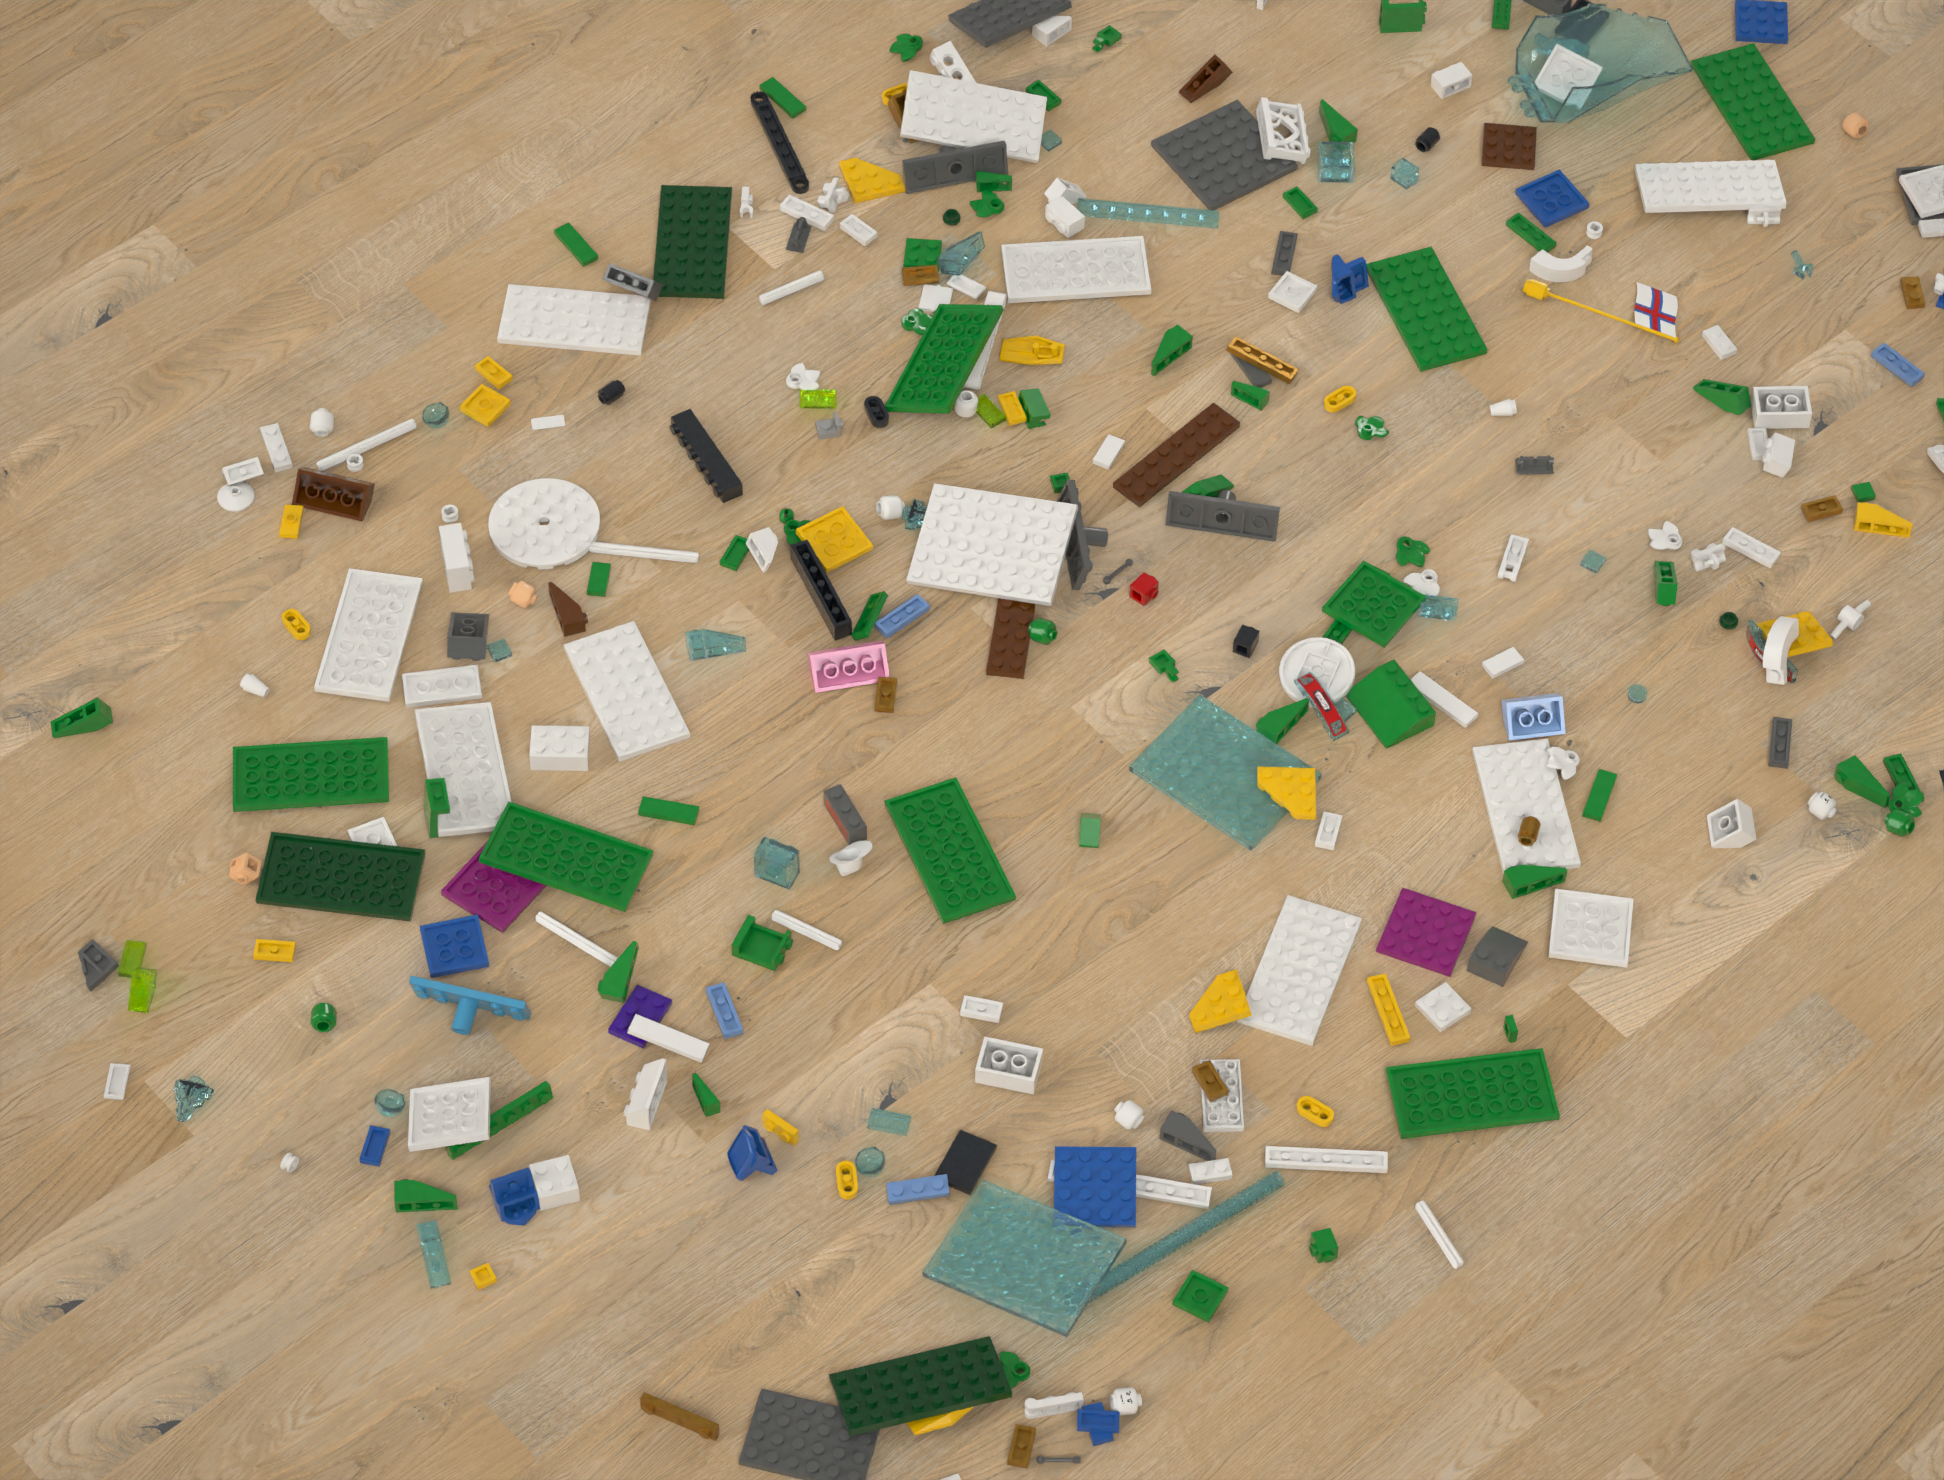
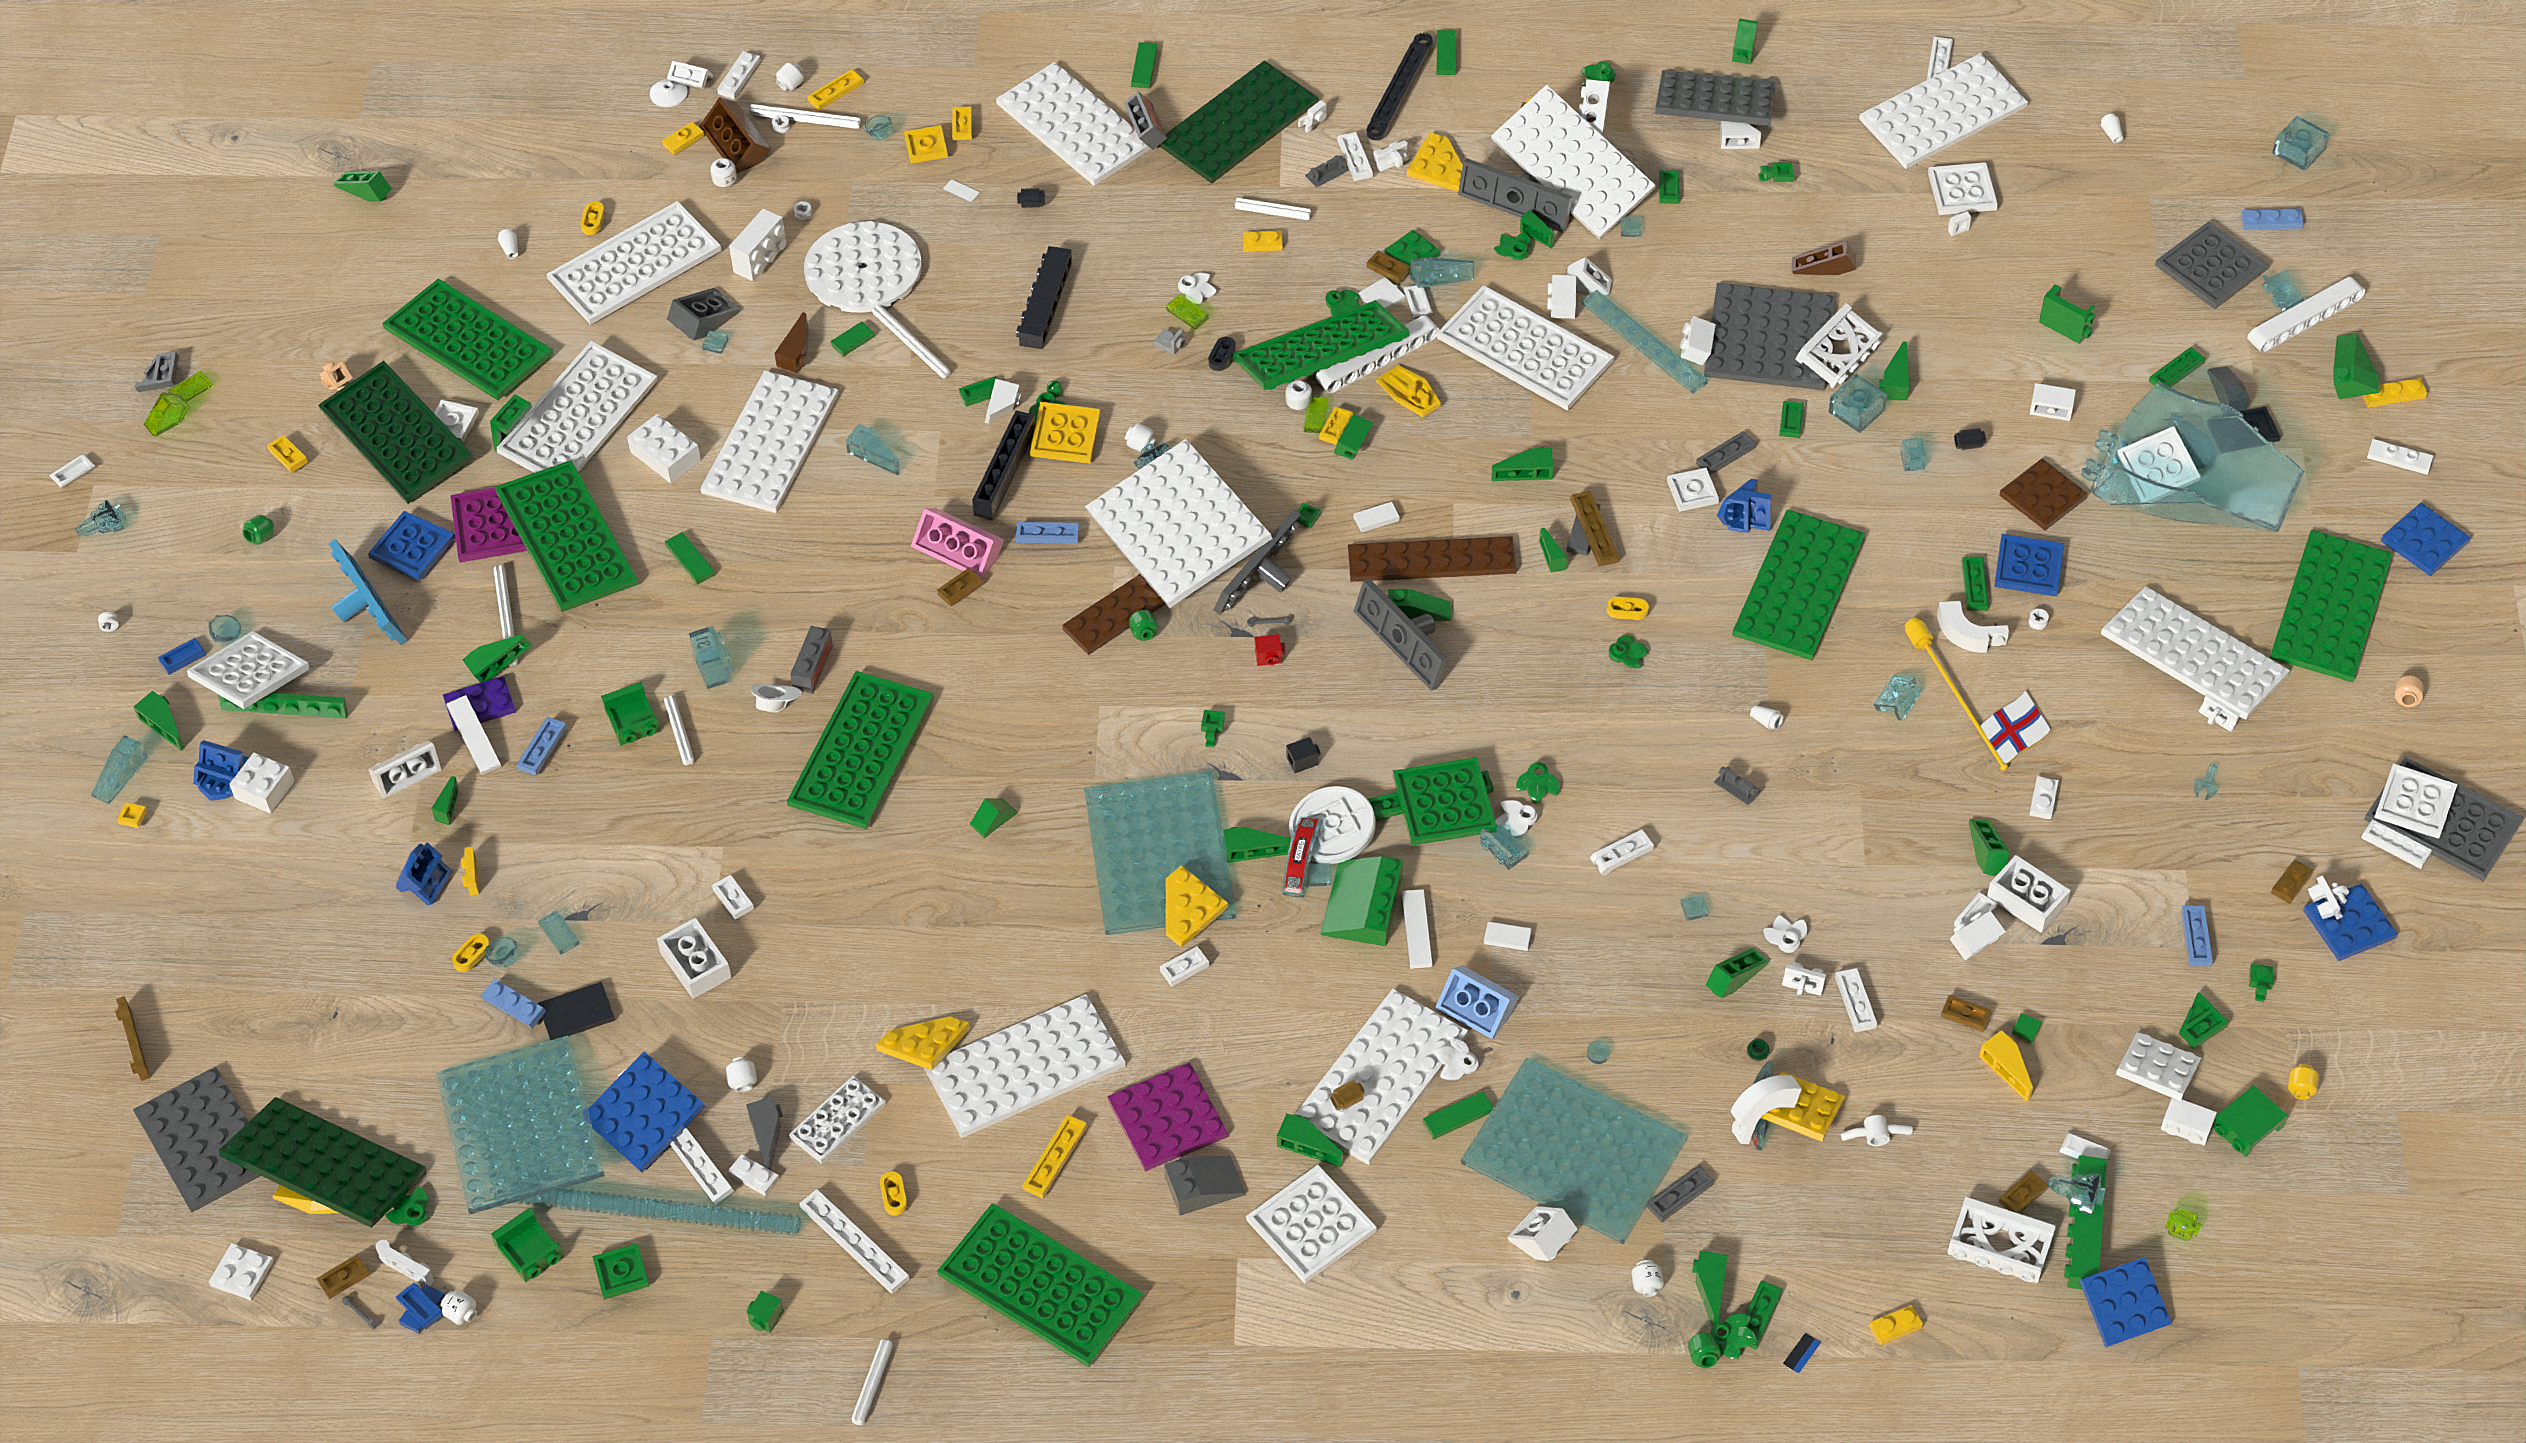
camera: 45 degrees right, 0 degrees up
(360, 524) = (723, 172): none -> white head
(364, 410) = (835, 89): none -> yellow tile
(441, 686) = (641, 340): white tile -> none
(523, 594) = (779, 309): light nougat head -> none
(809, 315) = (1262, 241): none -> yellow plate
(858, 230) = (1380, 197): white plate -> none
(869, 615) = (1021, 513): green tile -> none
(951, 217) = (1471, 237): dark green plate -> none
(1121, 1331) = (526, 1245): none -> green panel
(1186, 188) = (1697, 340): none -> white brick
(1210, 1081) = (831, 1097): pearl gold plate -> none
(1443, 1007) = (1105, 1191): white plate -> none
(1510, 1028) = (1137, 1255): green tile -> none
(1566, 338) = (1898, 696): none -> clear light blue bracket
(1690, 763) = (1574, 1150): none -> clear light blue plate

